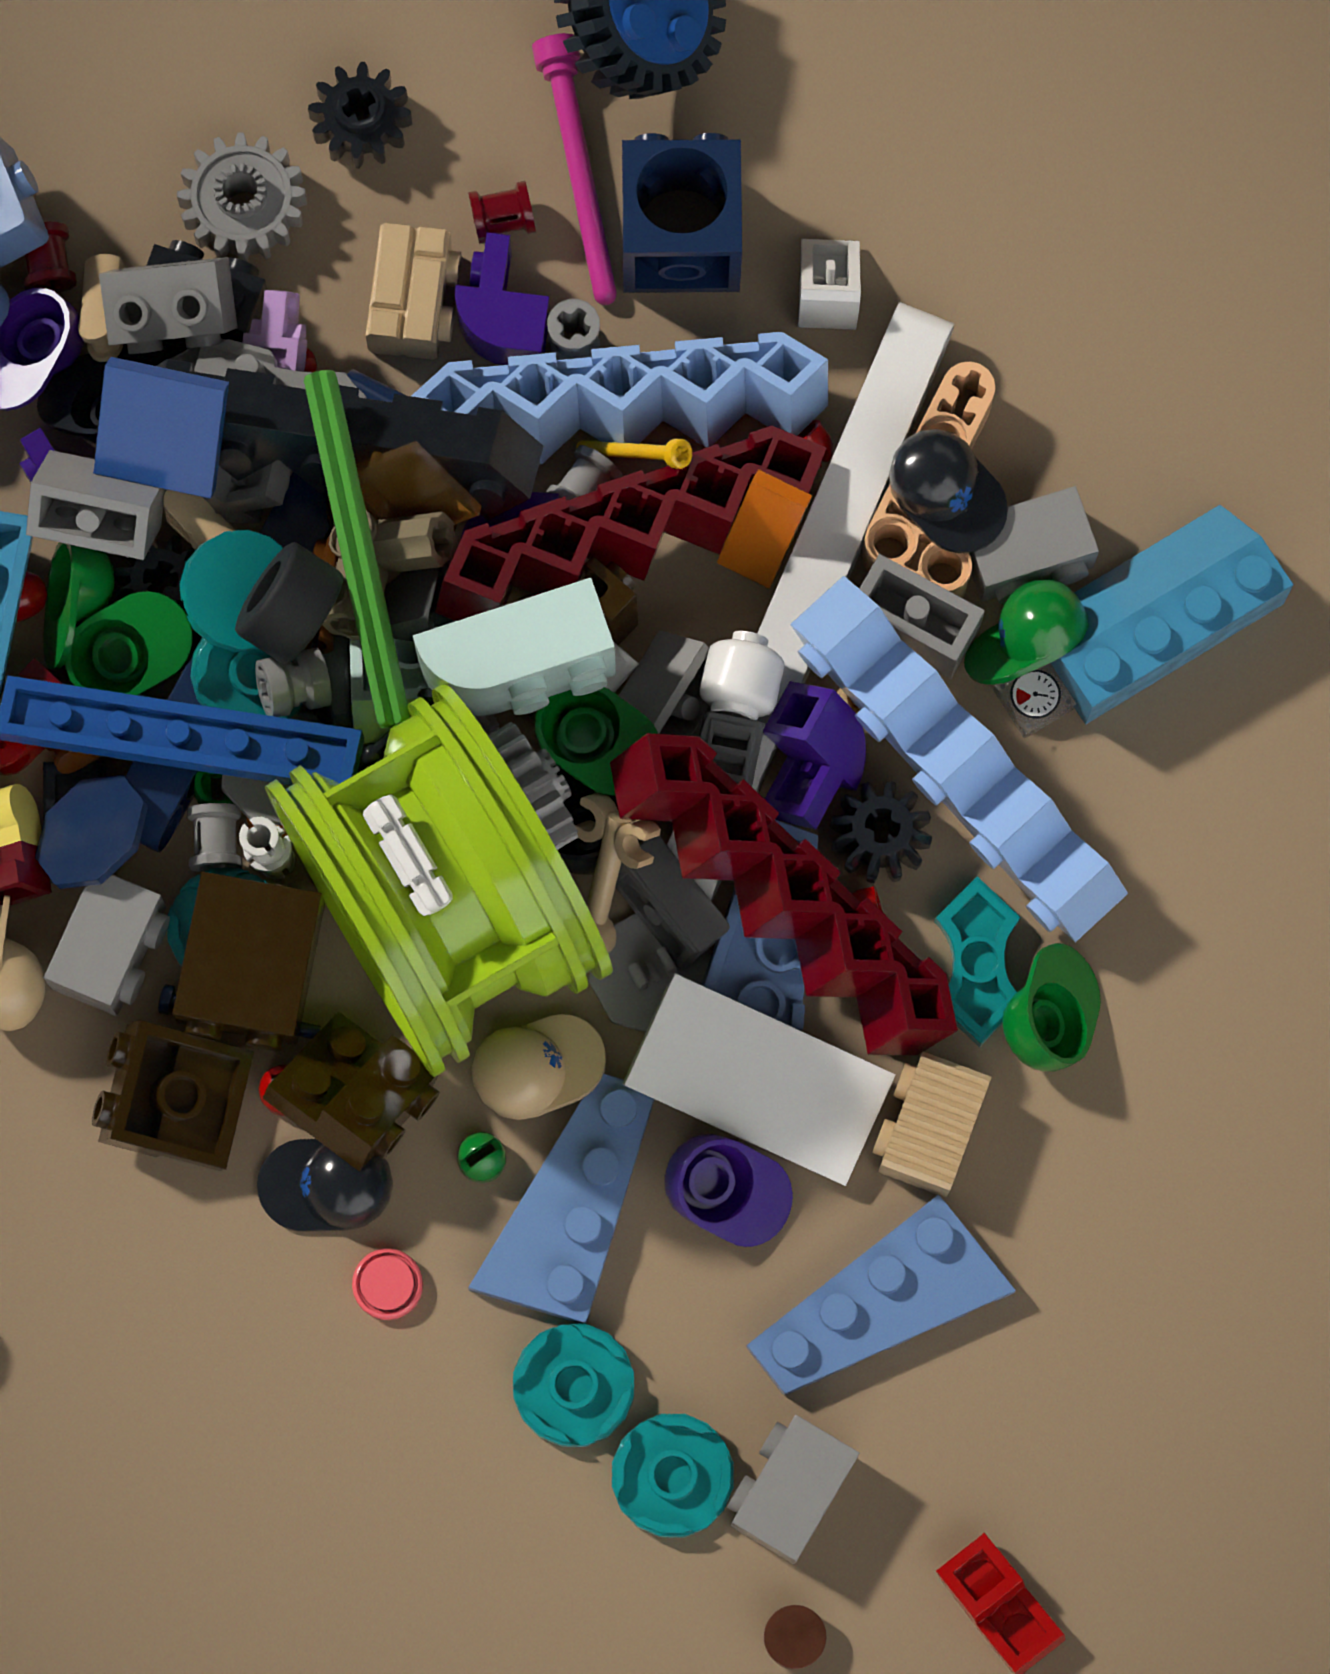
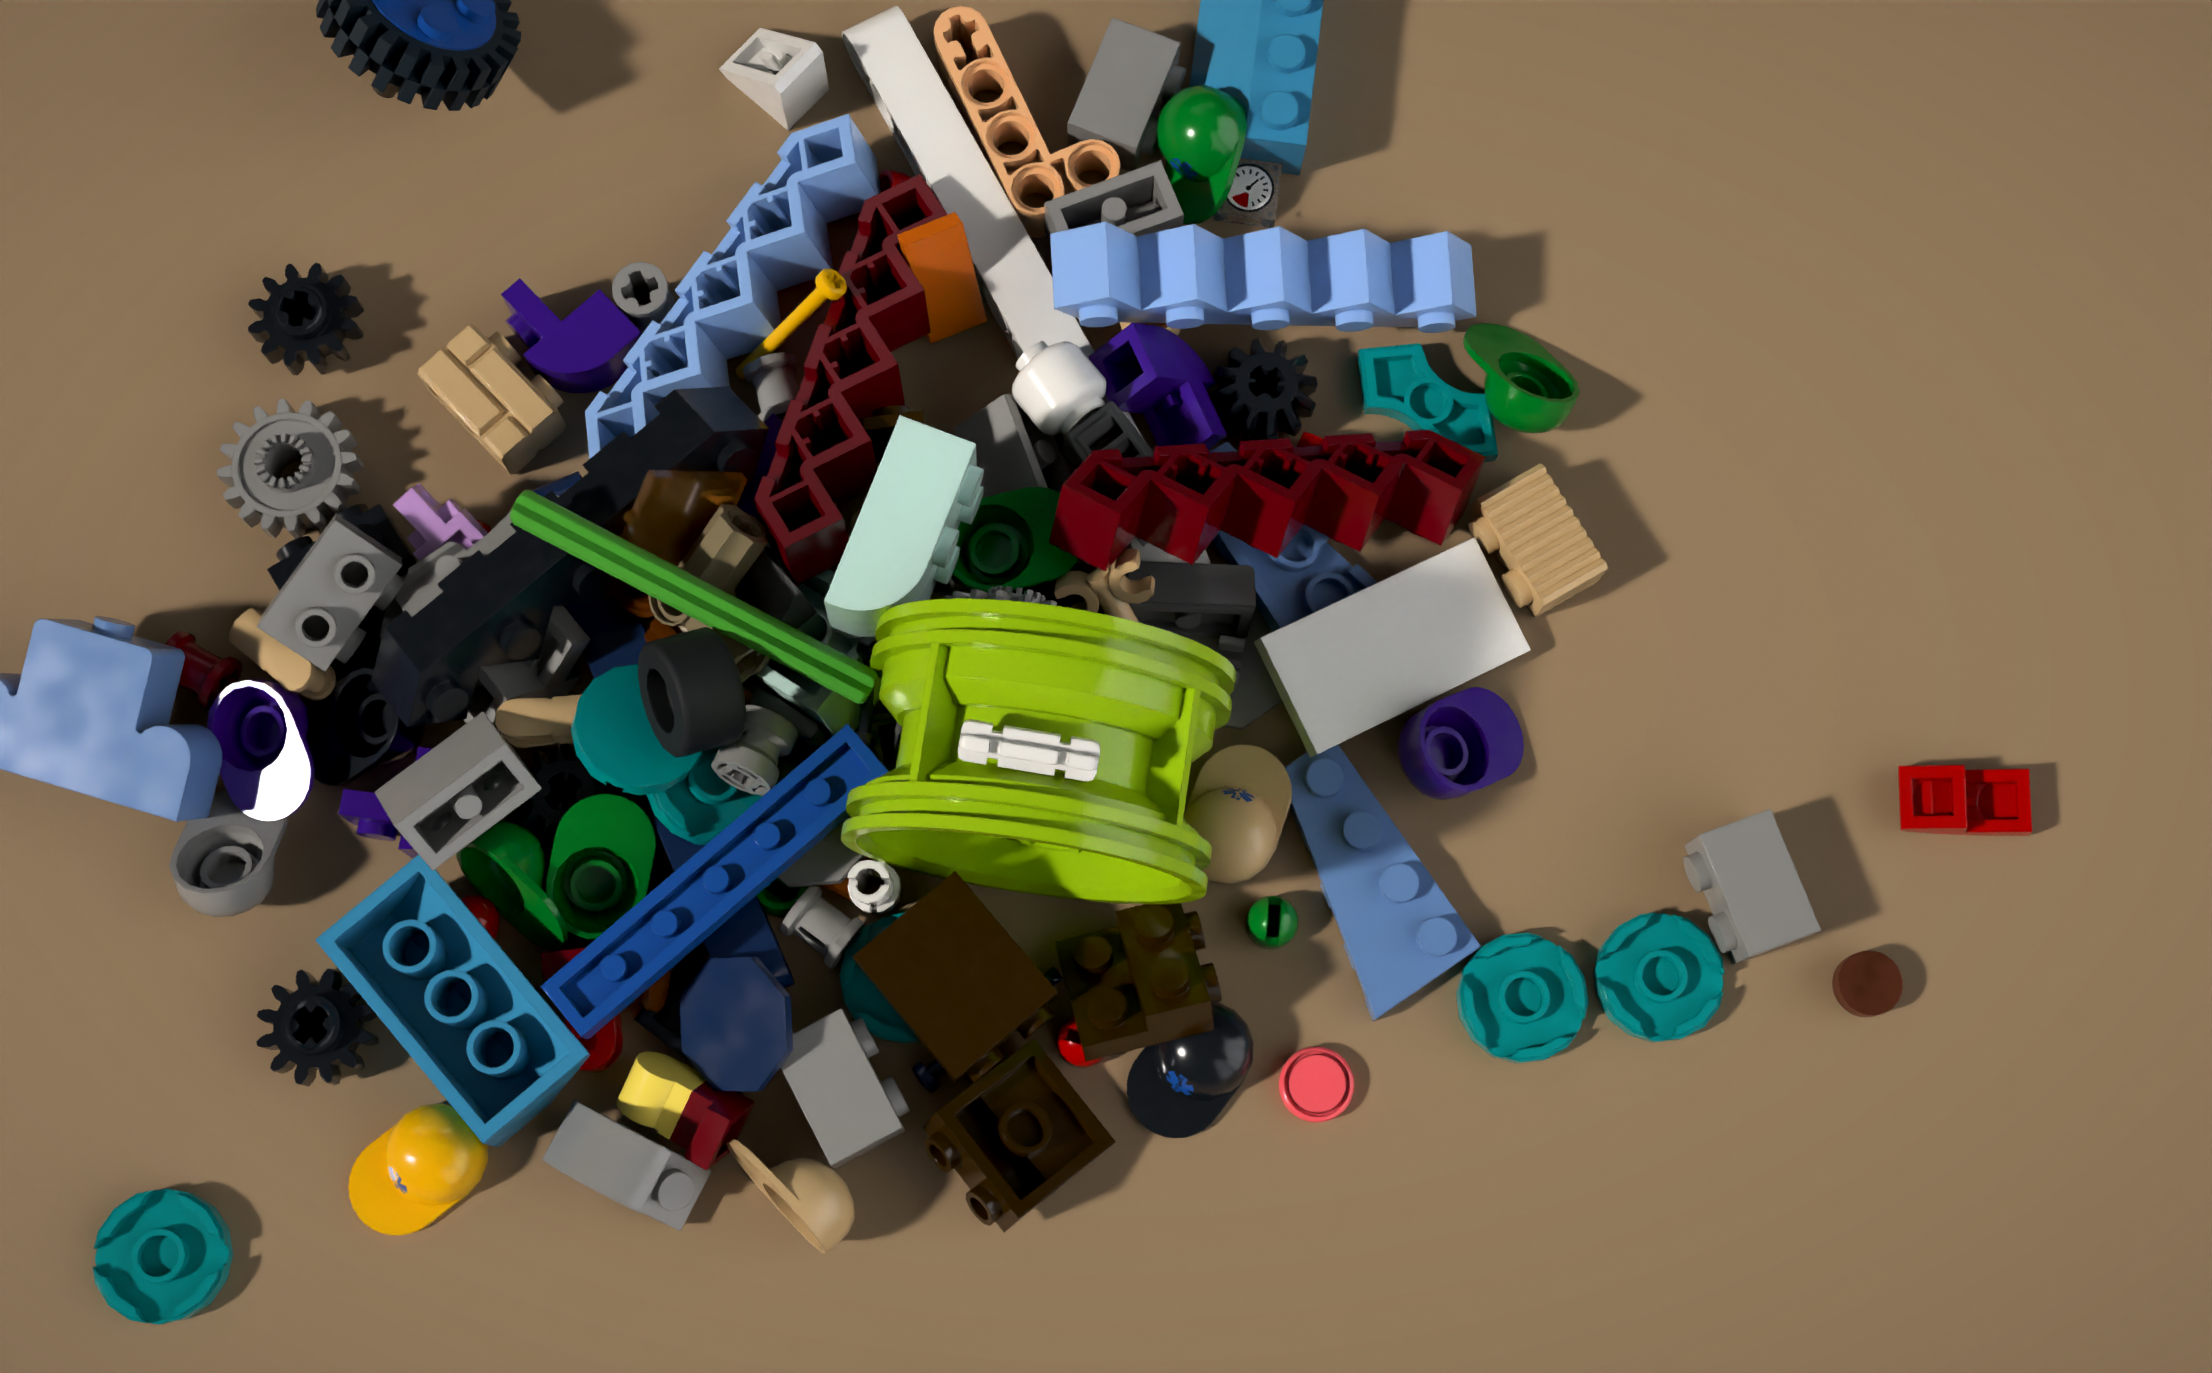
camera: 55 degrees left, 0 degrees up
(160, 427) = (442, 676): blue tile -> none
(502, 211) = (491, 274): dark red bush -> none
(559, 69) = (400, 130): dark pink piece -> none
(682, 261) = (640, 179): dark blue brick -> none
(894, 1291) = (1645, 685): medium blue wing -> none
(947, 491) = (1034, 113): black cap -> none

